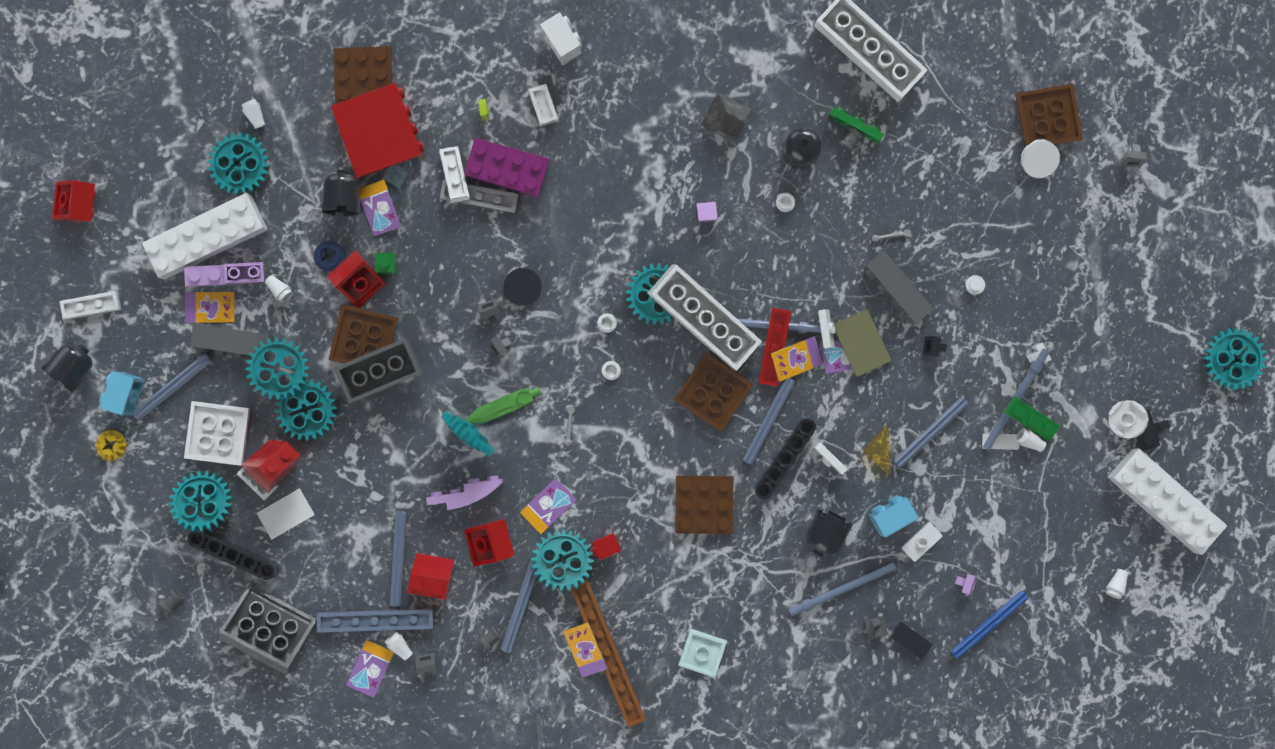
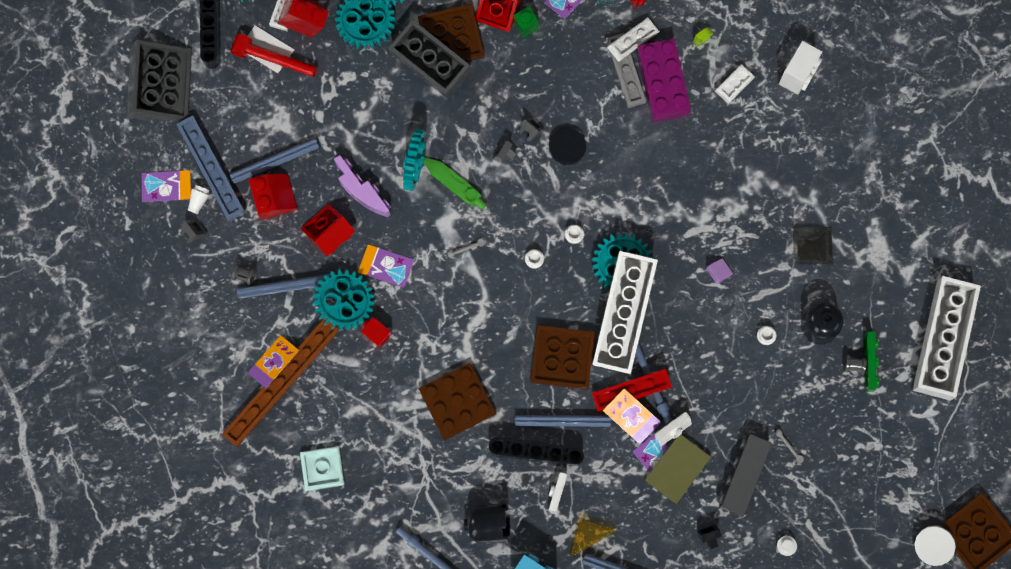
camera: 65 degrees right, 10 degrees down
(273, 534) = (243, 46): none -> red piece

